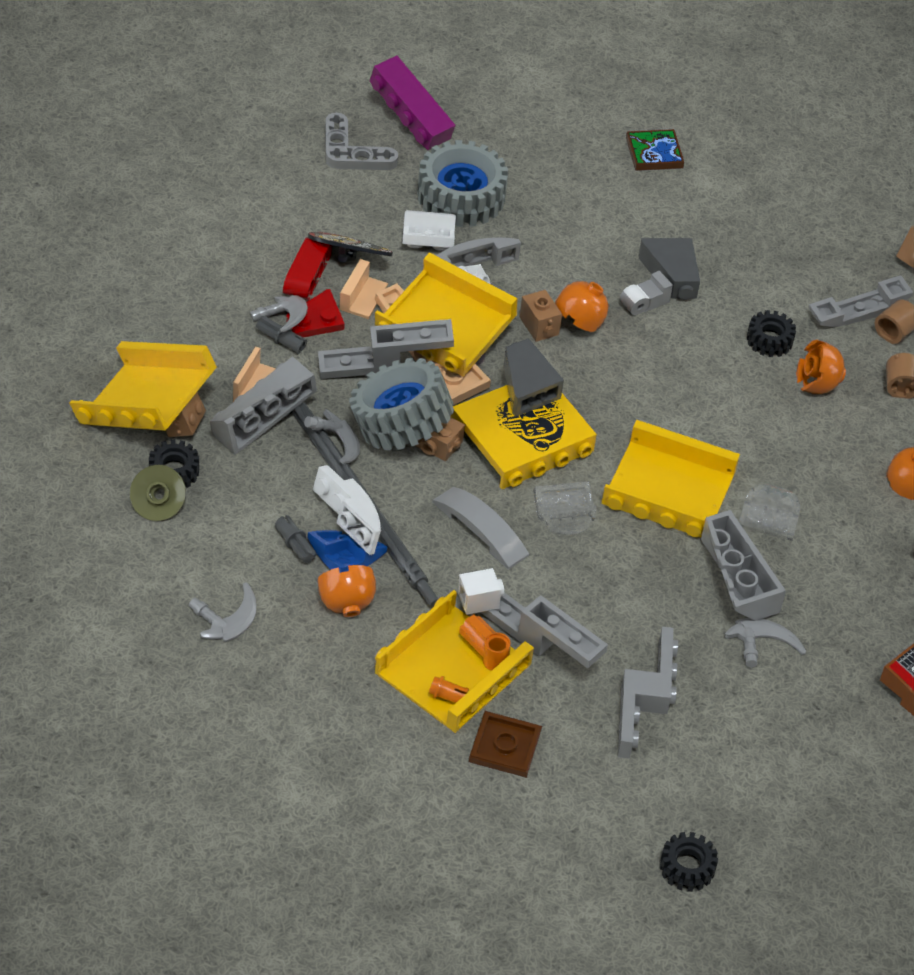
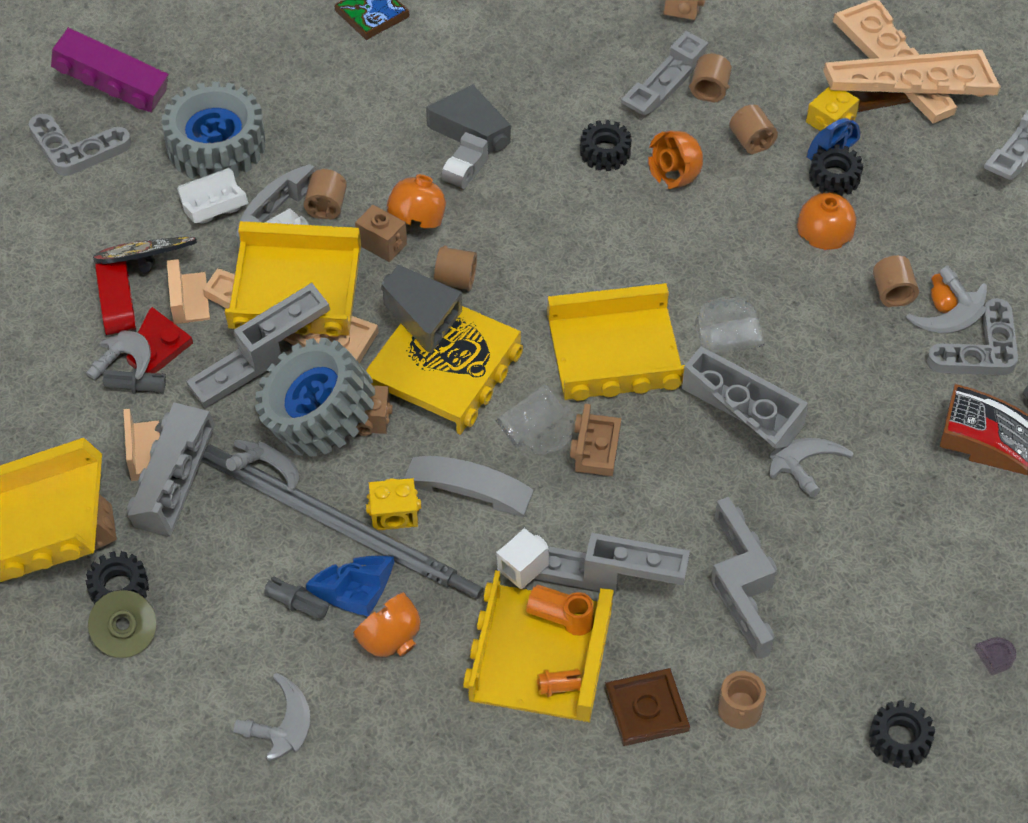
camera: 25 degrees left, 5 degrees up
(352, 504) = (341, 535): white slope -> none
(412, 510) = (393, 504): none -> yellow head
(517, 267) = (325, 194): none -> medium nougat piece
(579, 773) = (741, 699): none -> medium nougat piece
(580, 367) = (455, 267): none -> medium nougat piece
(600, 542) = (597, 443): none -> medium nougat bracket
(811, 849) = (996, 654): none -> clear purple tile

